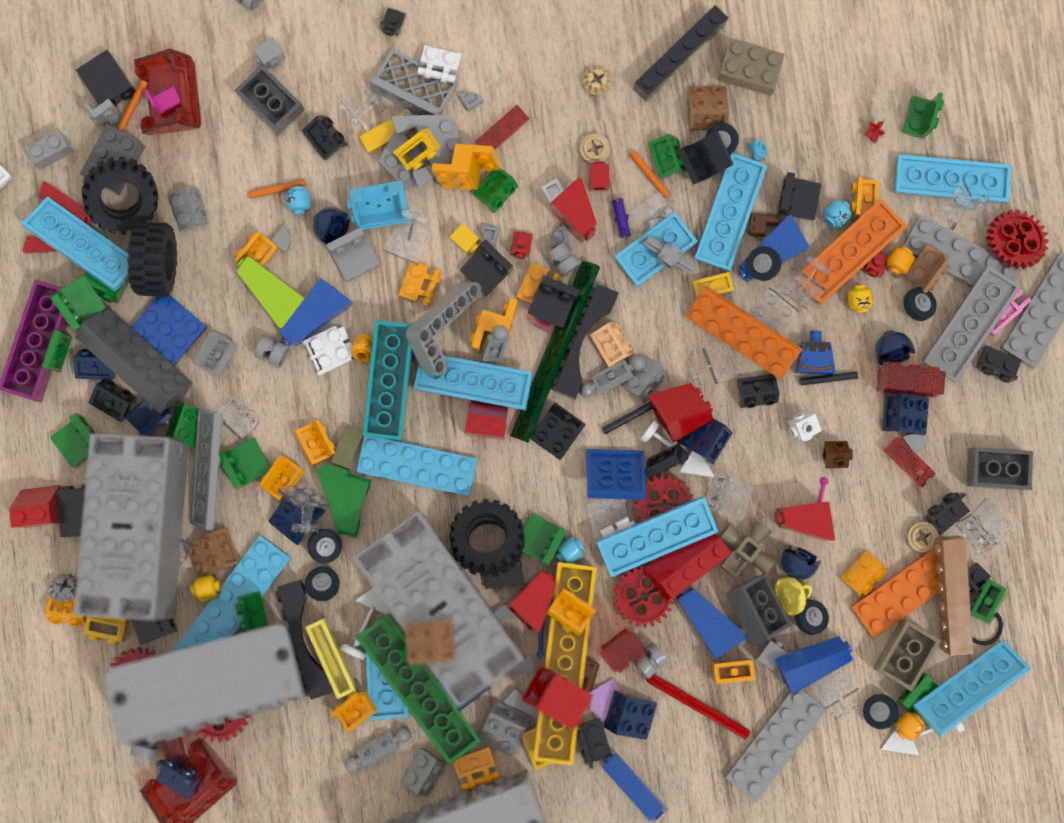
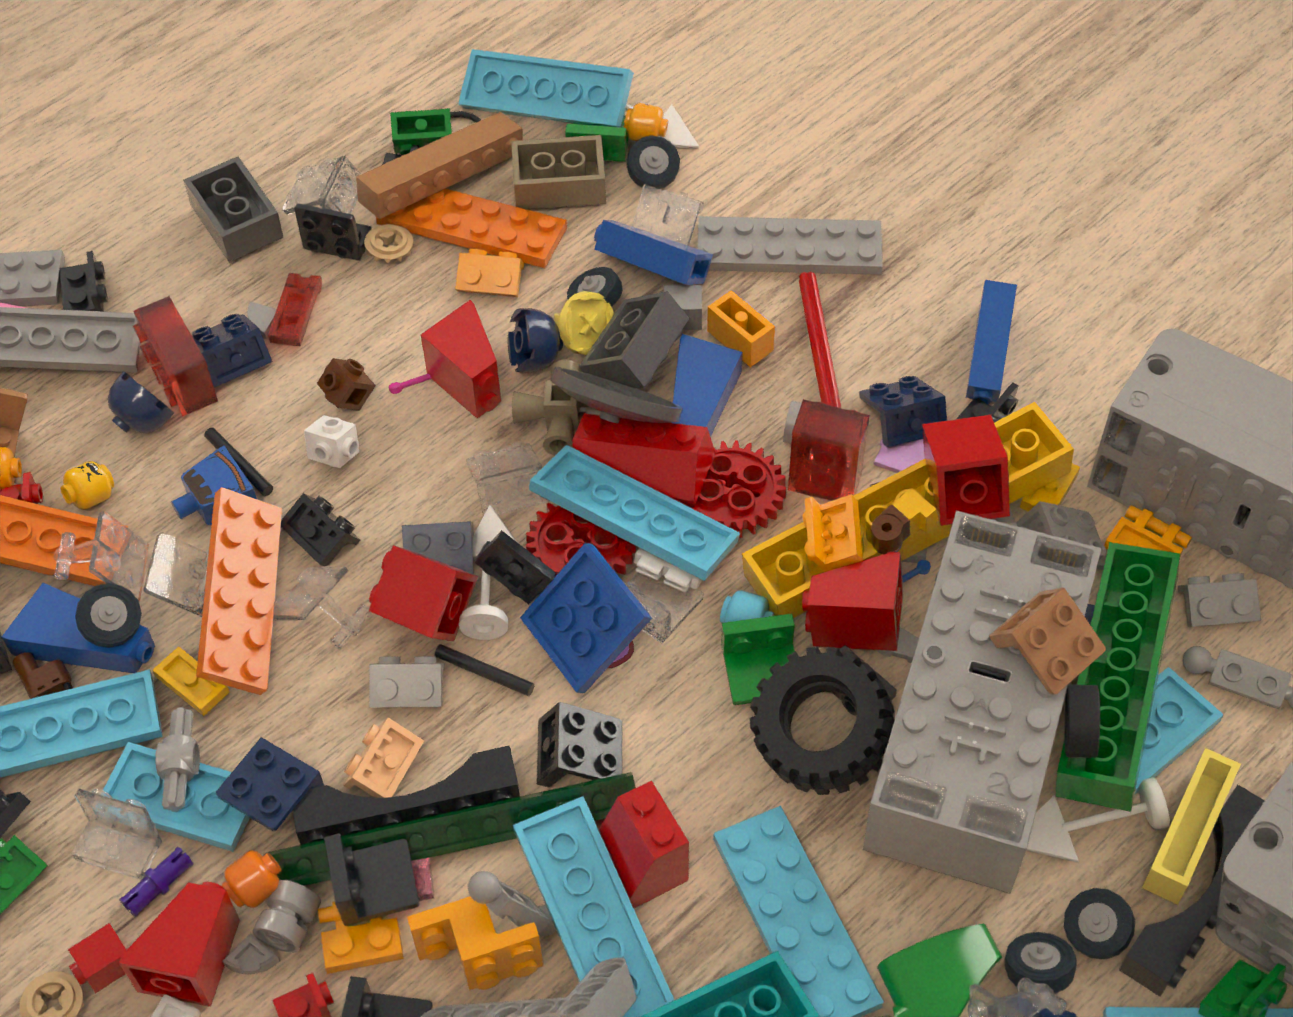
camera: 120 degrees left, 30 degrees down
(354, 710) = (1231, 737): light orange bracket -> none
(393, 636) = (1082, 721): none -> black tyre
(554, 646) = (901, 521): none -> leg
(587, 253) = (251, 879): none -> orange head
(612, 376) = (433, 722): light grey plate -> none
(629, 286) = (268, 784): none -> dark blue bracket
(649, 173) = (48, 891): orange bar -> none
(718, 567) = (615, 399): none -> dark grey dish
(919, 305) = (49, 413): black wheel -> none

